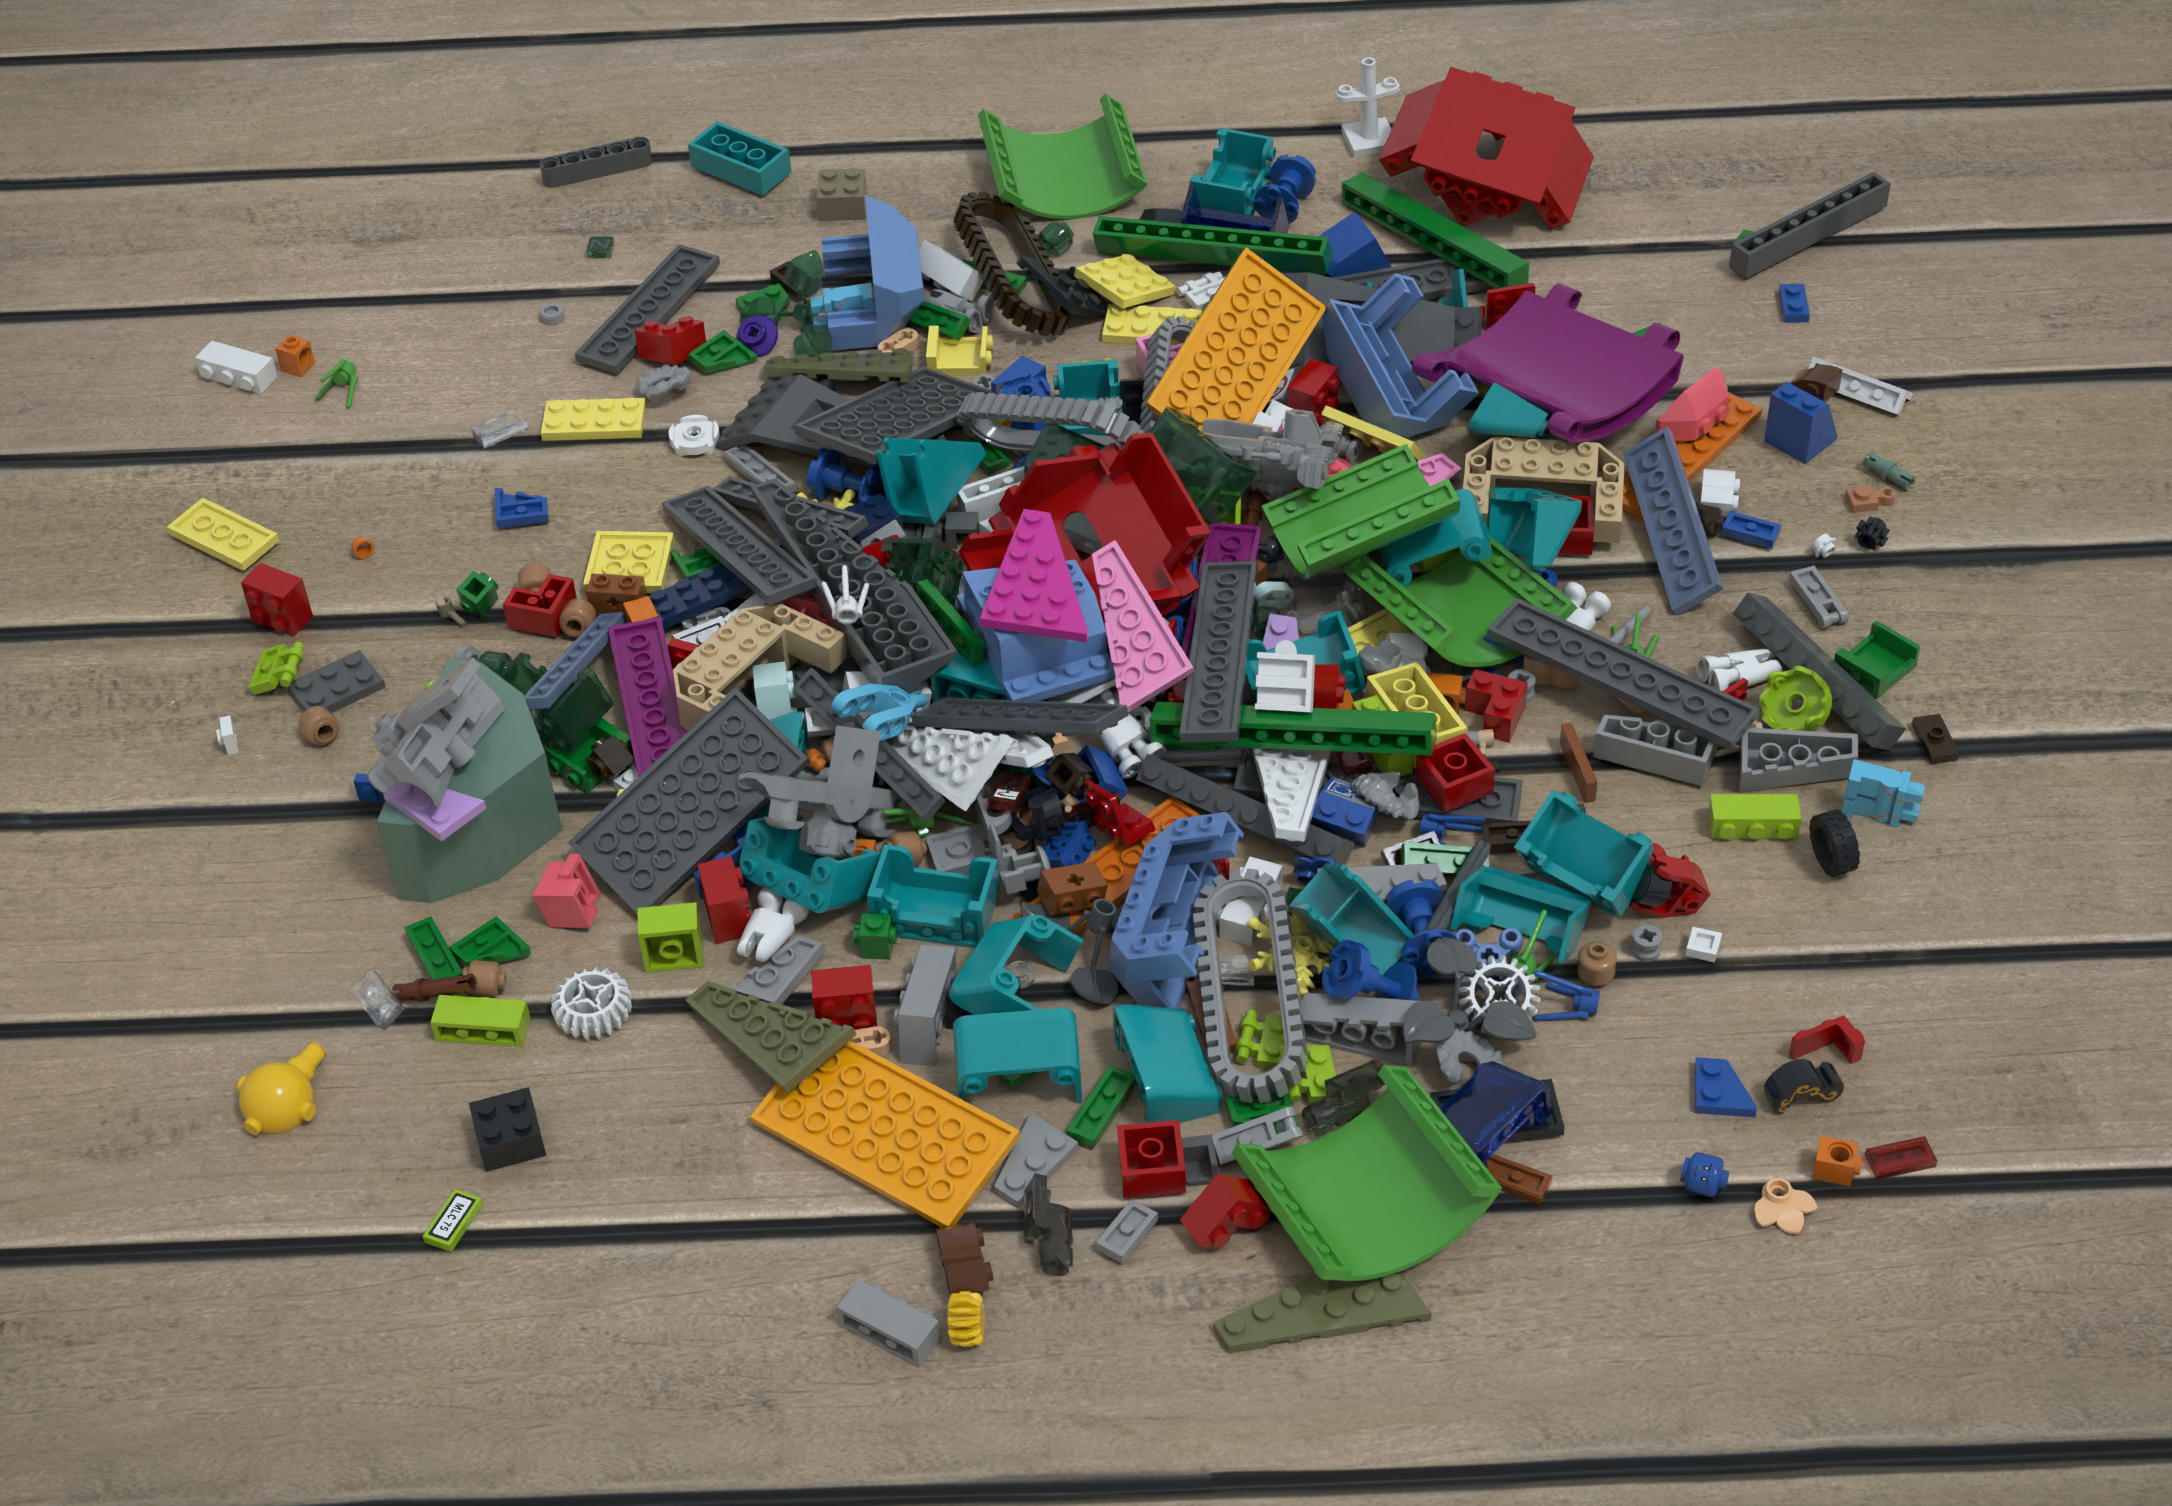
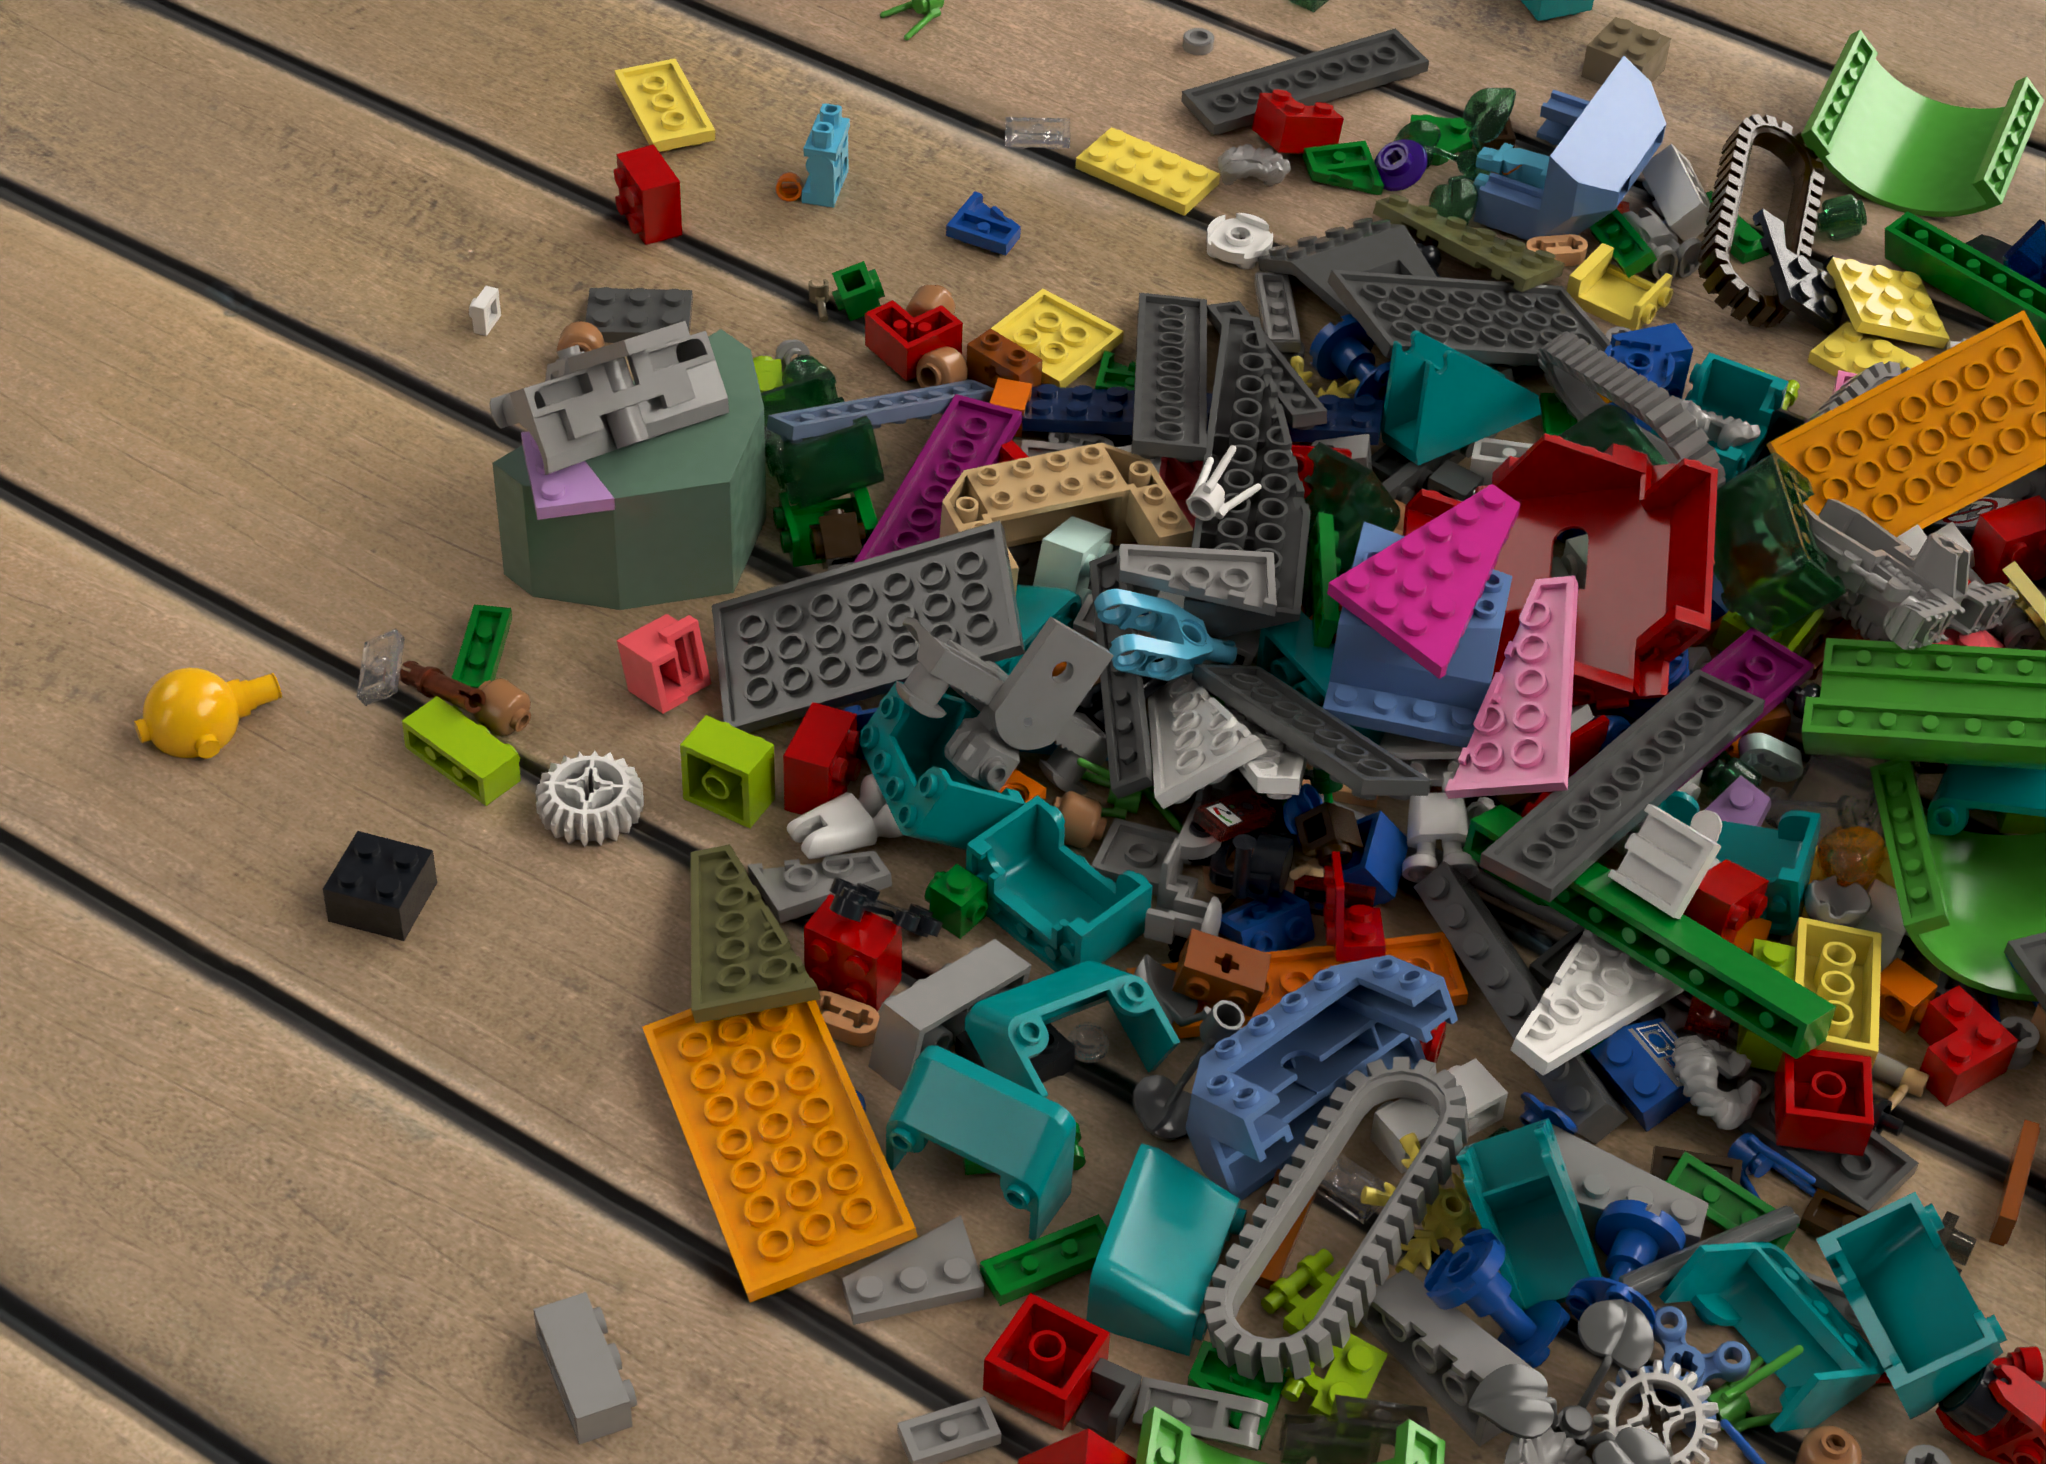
camera: 30 degrees right, 0 degrees up
(272, 667) = (592, 265): lime plate -> none
(379, 518) = (826, 157): none -> medium azure hips
(453, 1220) = (245, 953): tile -> none
(490, 942) = (544, 673): green wing -> none
(839, 967) = (854, 900): none -> black plant
(888, 653) = (1210, 575): none -> light grey wing
(963, 1258) = (728, 1344): reddish brown brick -> none
(966, 1319) = (666, 1419): yellow gear -> none
(1048, 1227) = (856, 1372): clear smoke plate -> none
(1368, 625) = (1851, 855): none -> clear orange piece

